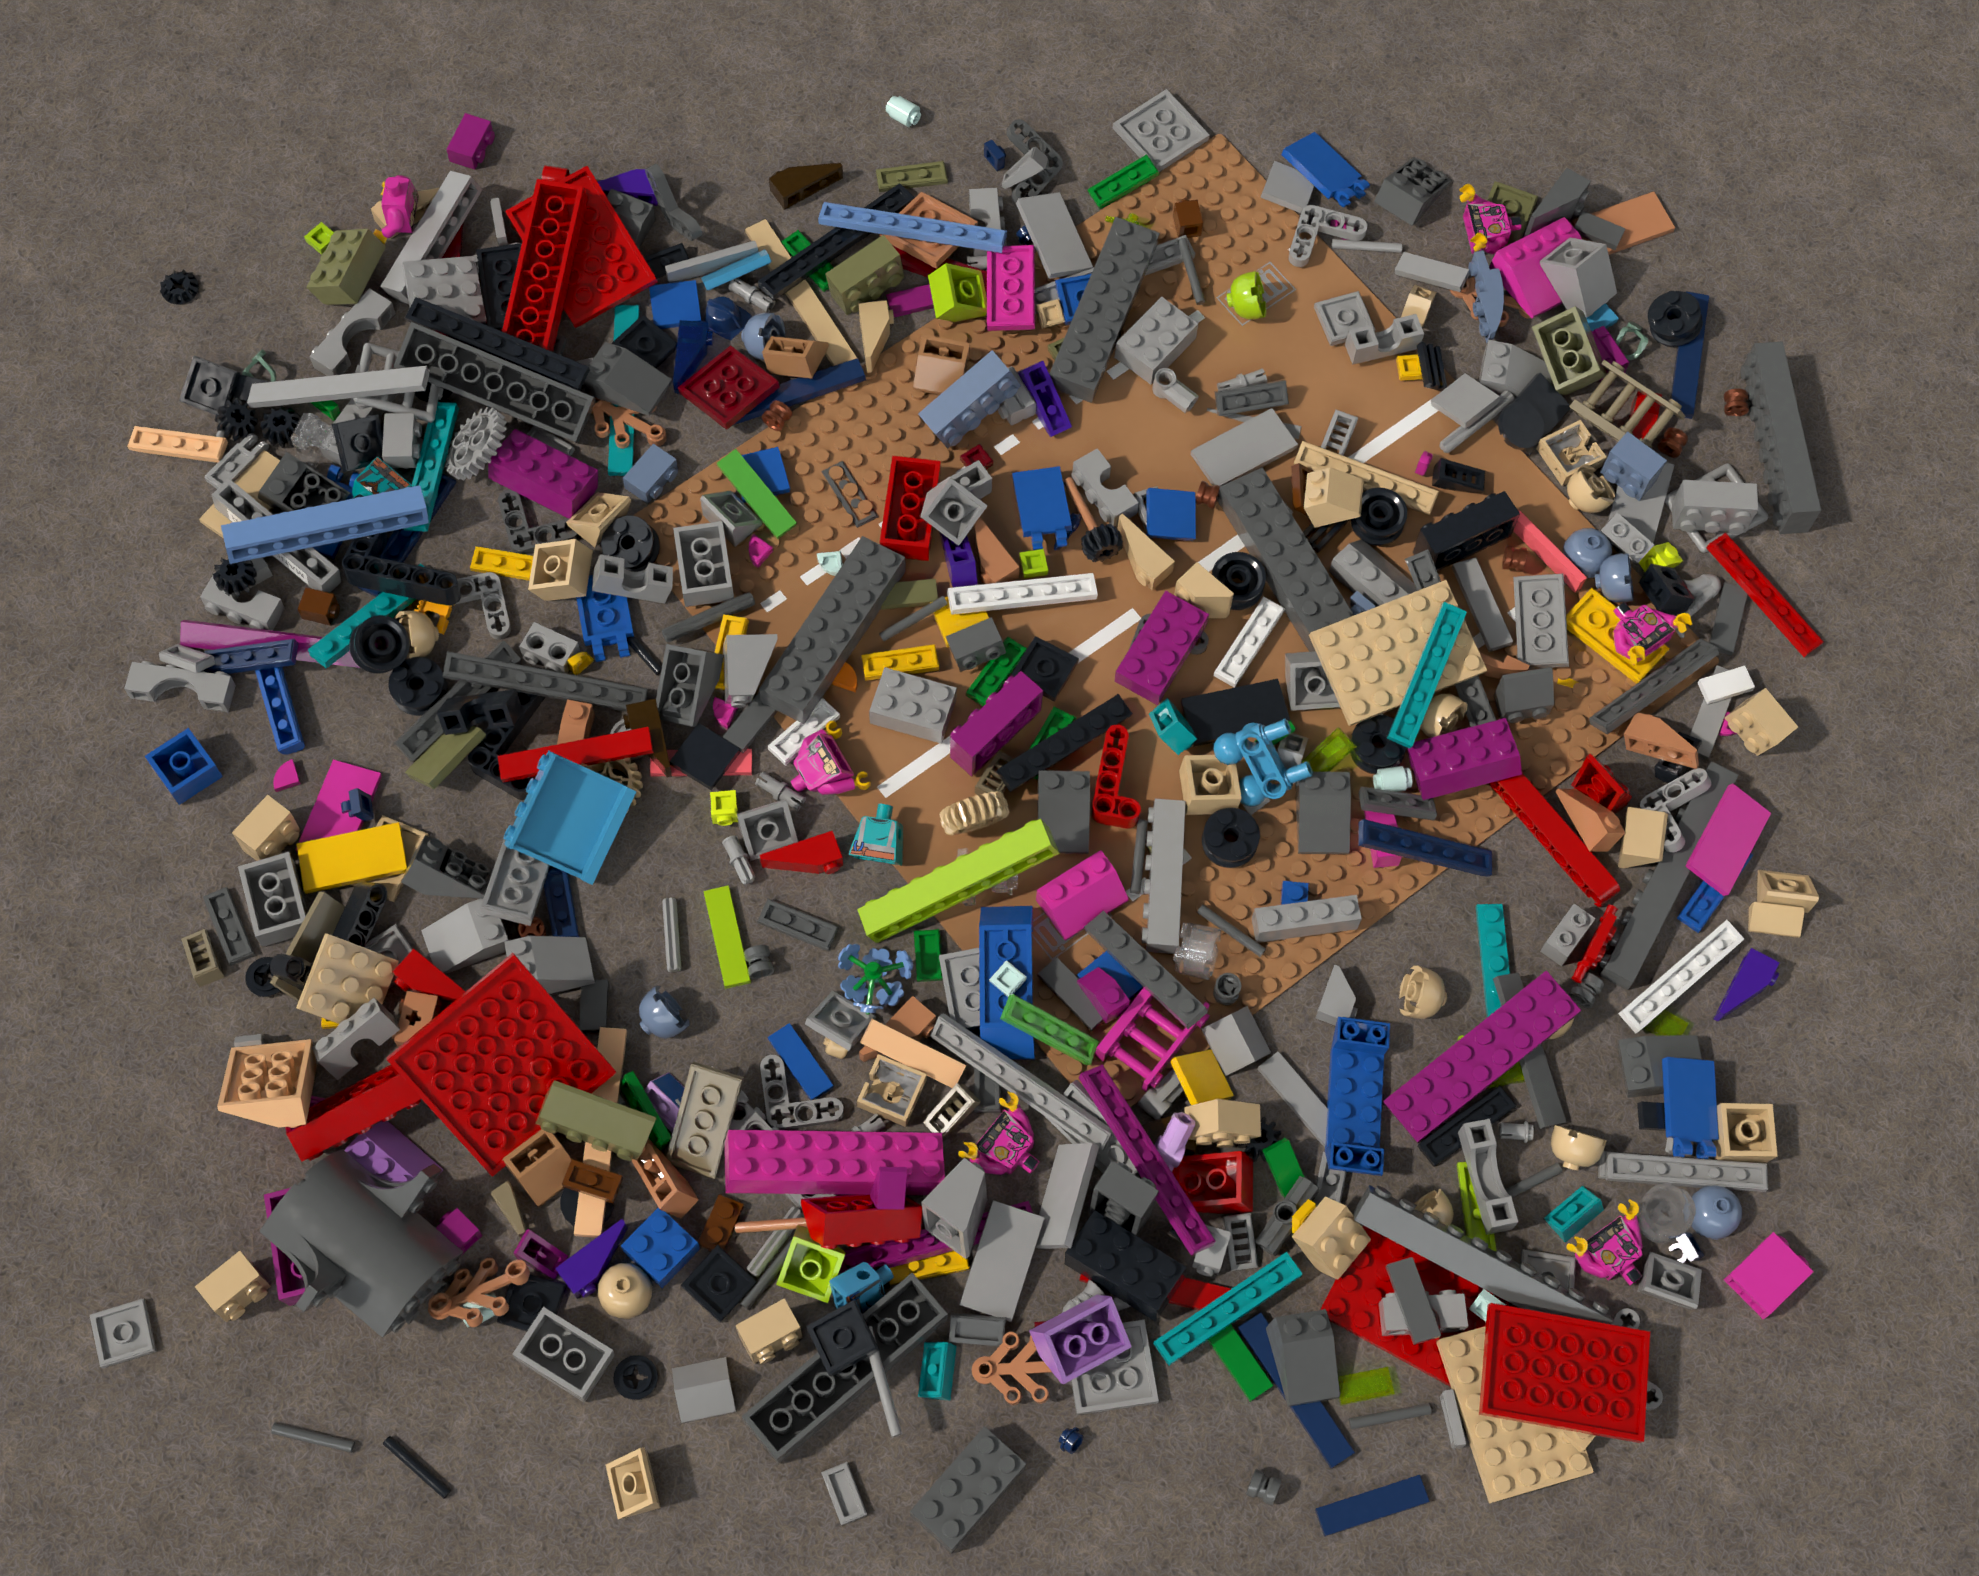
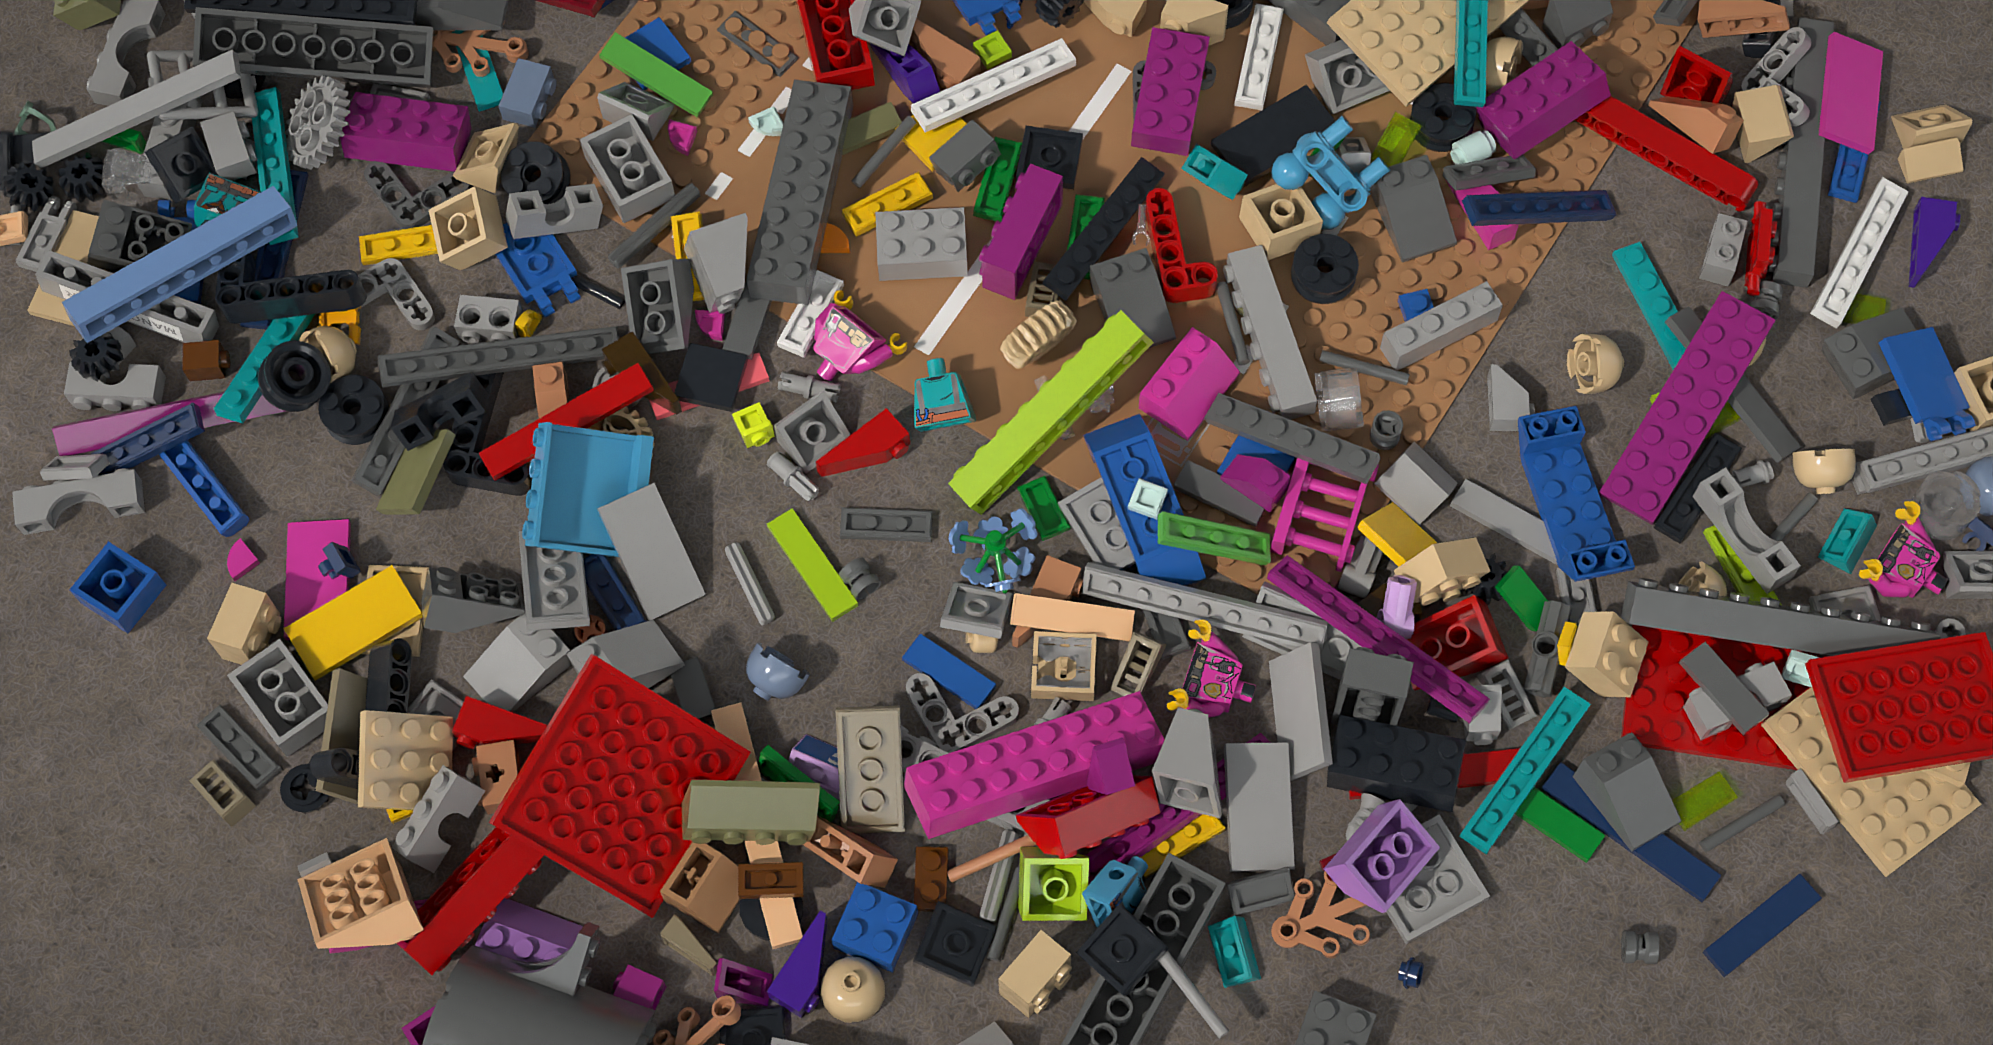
camera: 15 degrees left, 0 degrees up
(602, 882) = (651, 551): none -> light grey tile
(1096, 751) = (1141, 226): none -> clear hand

